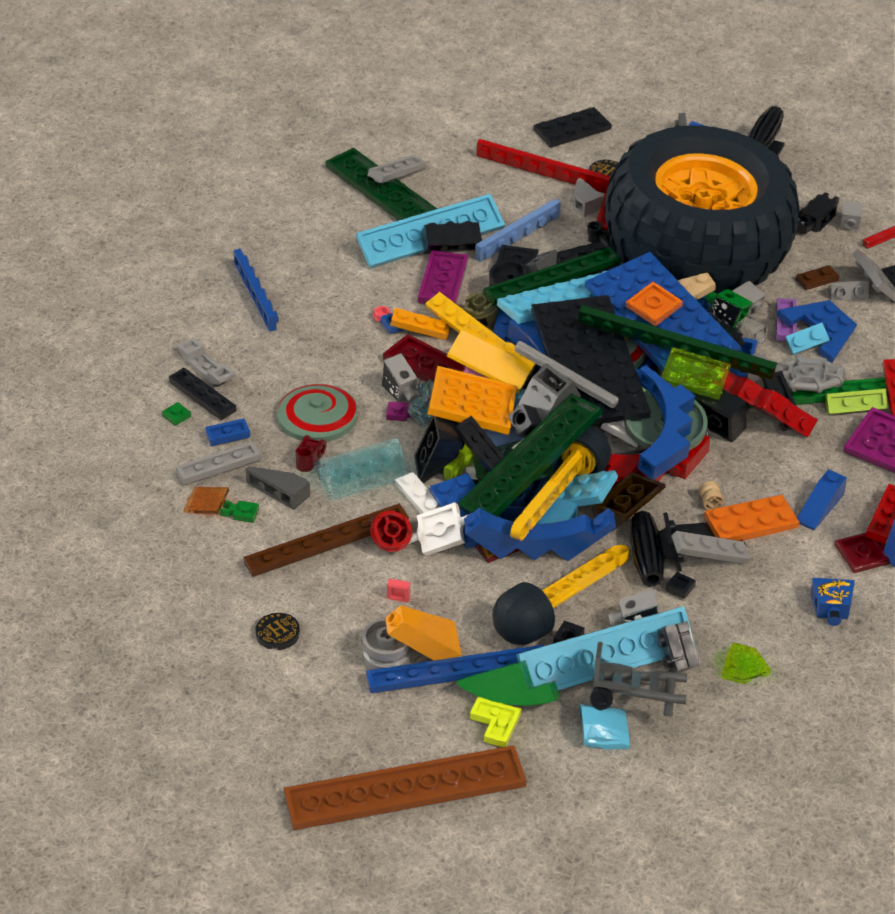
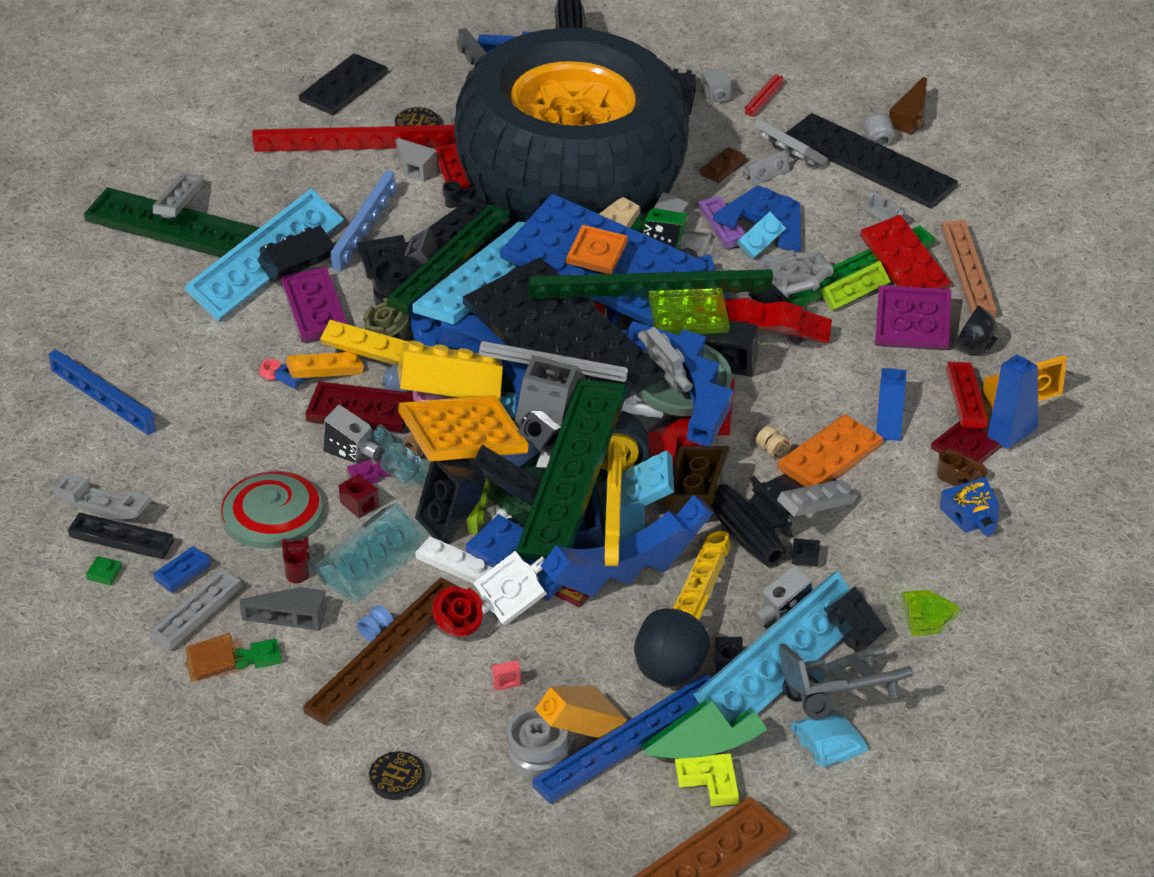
camera: 25 degrees left, 0 degrees up
(332, 518) = (375, 623): none -> medium blue wheel
(381, 425) = (358, 495): none -> dark red brick
(654, 402) = (667, 358): none -> light grey plate
(841, 566) = (958, 468): none -> reddish brown piece

